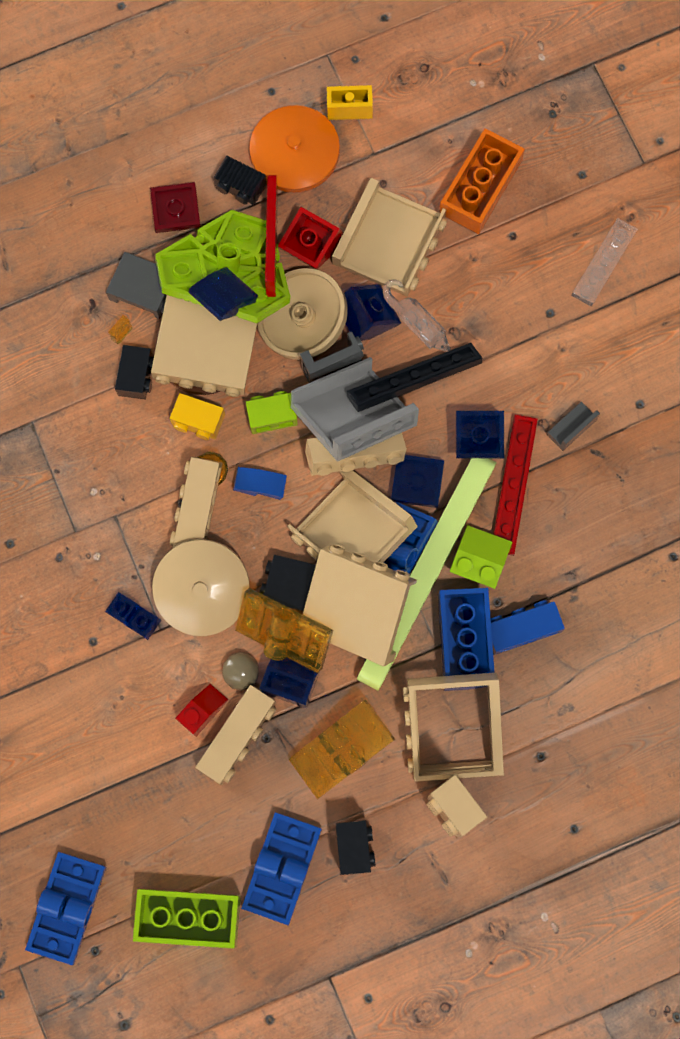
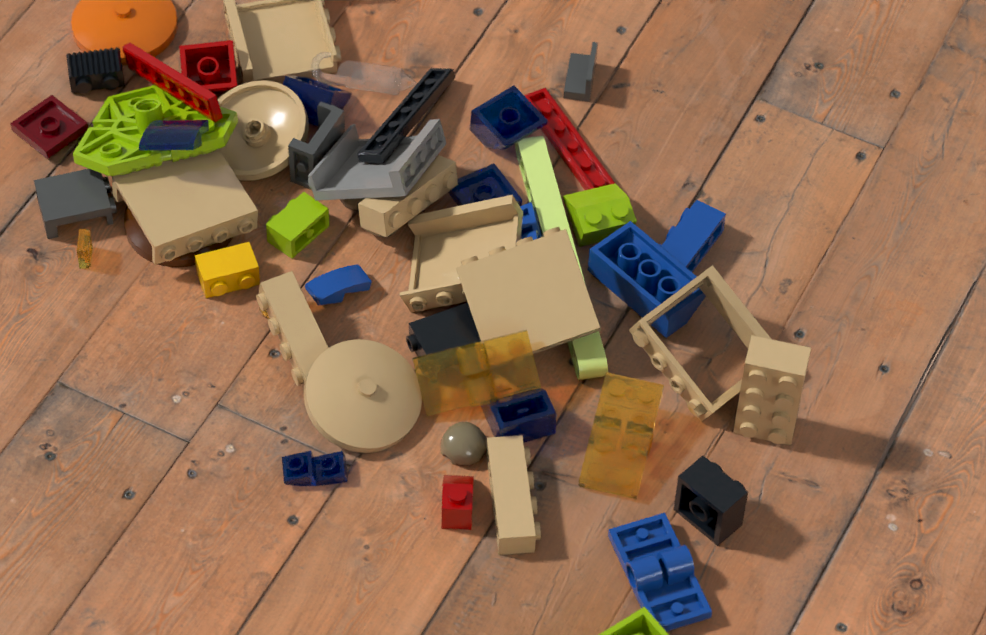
camera: 45 degrees left, 25 degrees down
(134, 372) = (131, 272): black brick -> none

